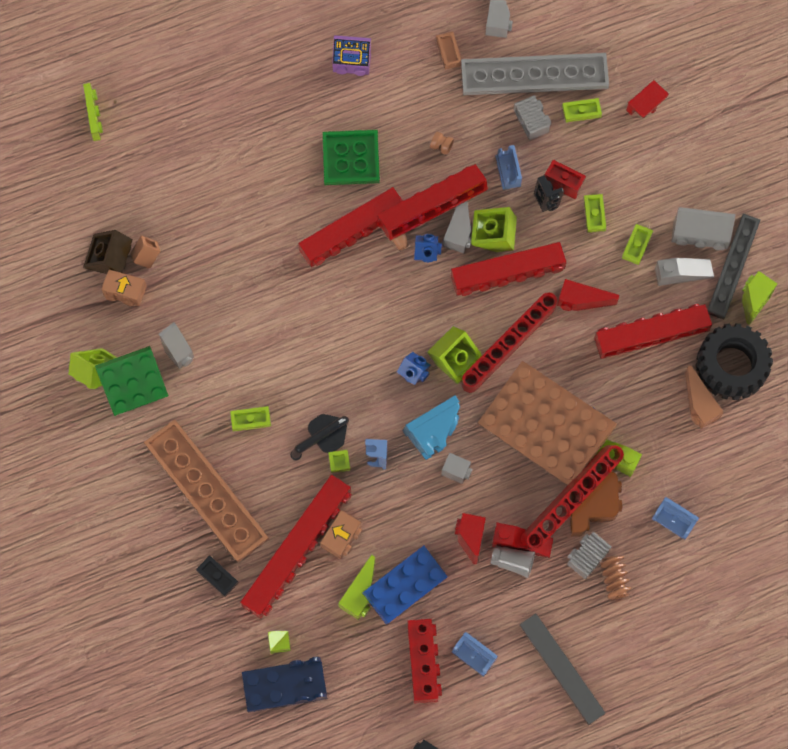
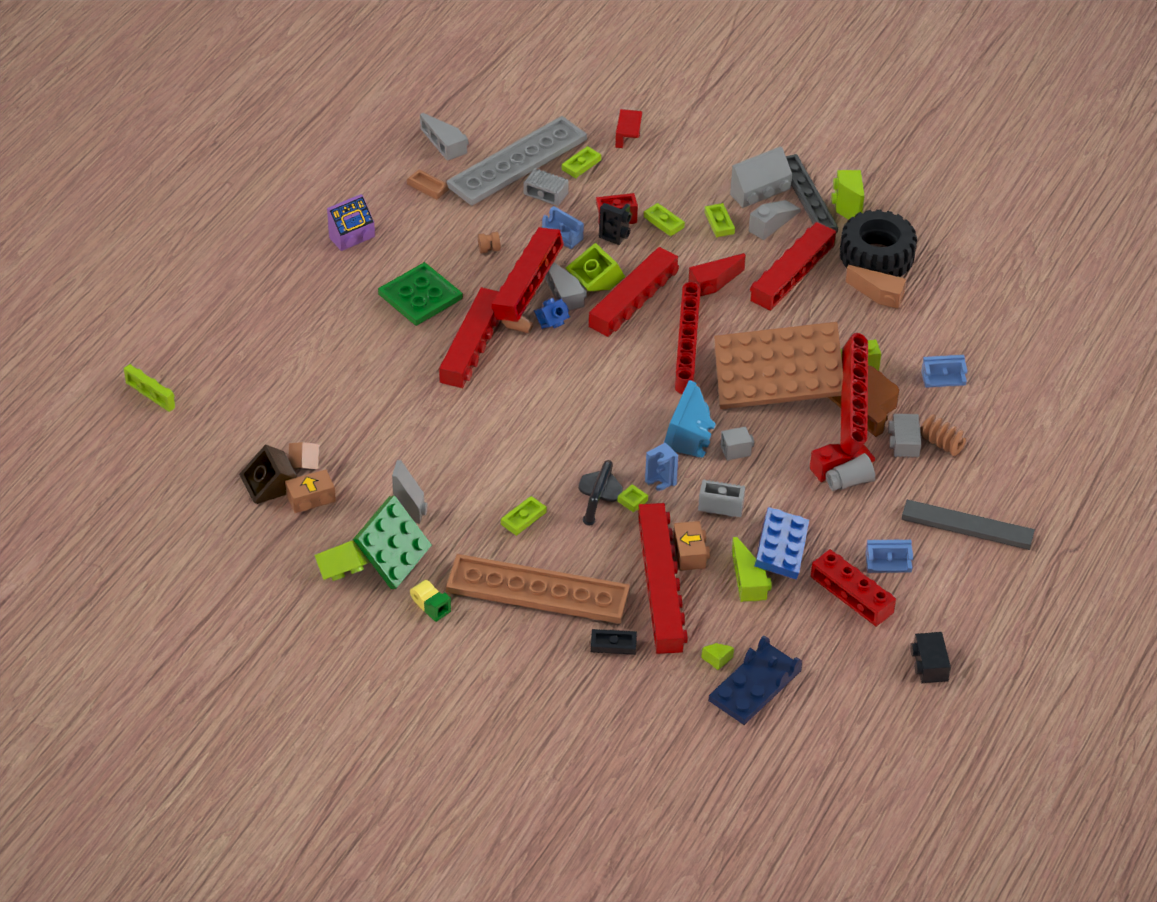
camera: 40 degrees left, 25 degrees down
(126, 444) = (430, 600): none -> leg
(396, 512) = (721, 498): none -> light grey brick
(414, 368) = (622, 393): blue brick -> none
(454, 353) = (651, 369): lime slope -> none
(470, 534) = (801, 474): red slope -> none

